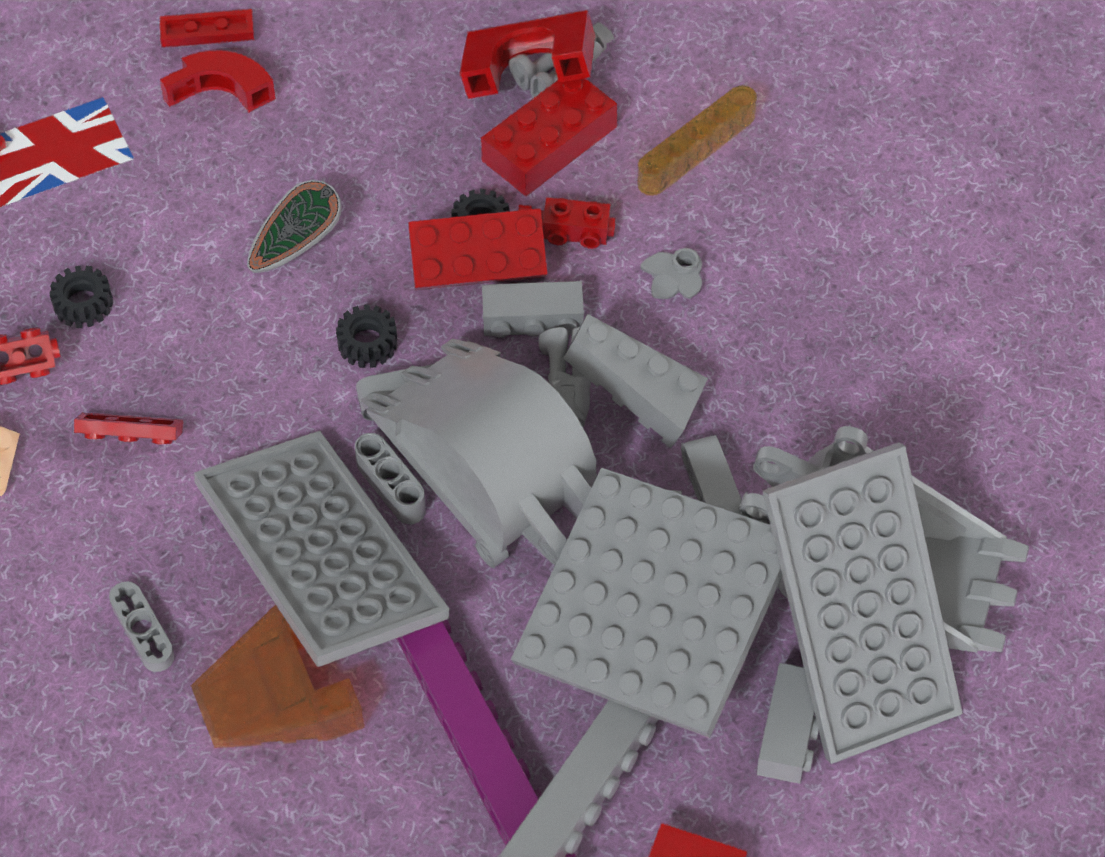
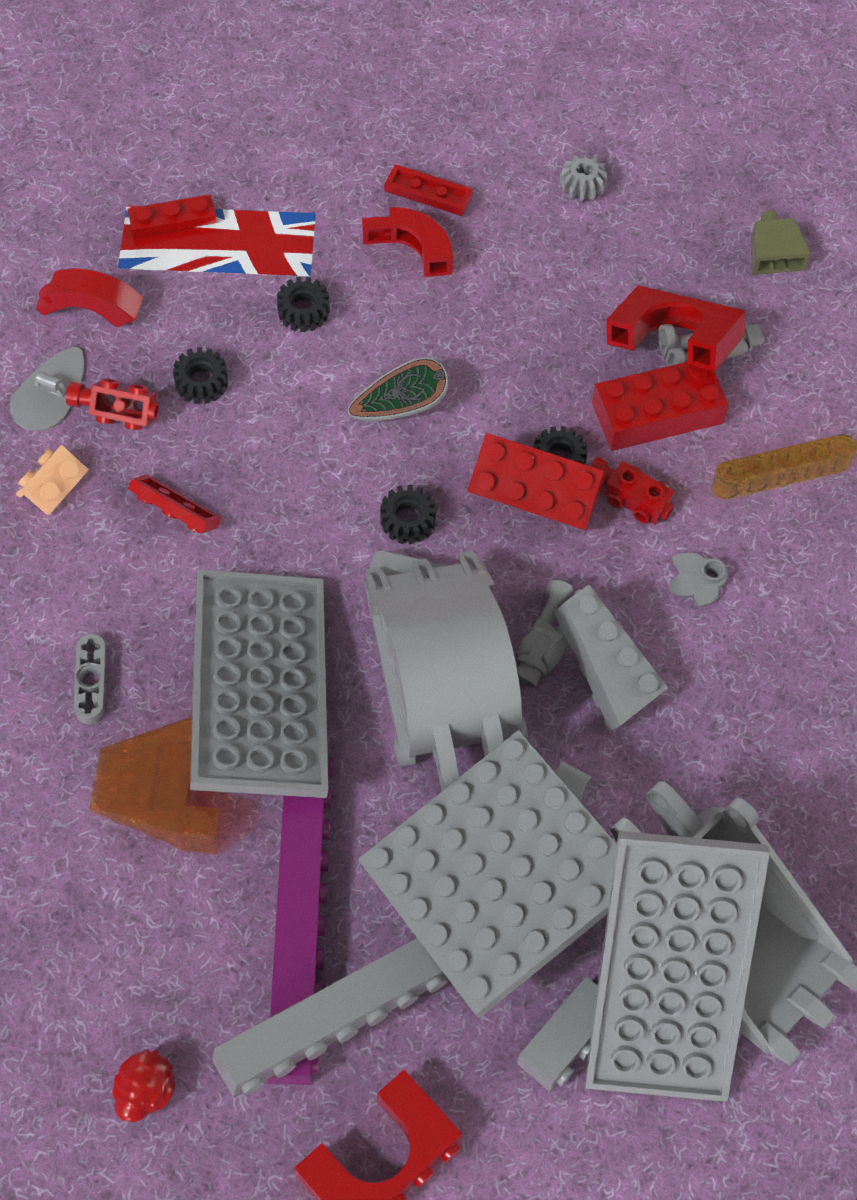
camera: 25 degrees right, 5 degrees up
(143, 172) = (303, 317): none -> black tyre
(385, 465) = (356, 635): light grey beam -> none
(531, 308) = (557, 553): light grey brick -> none
(710, 473) = (624, 779): light grey beam -> none

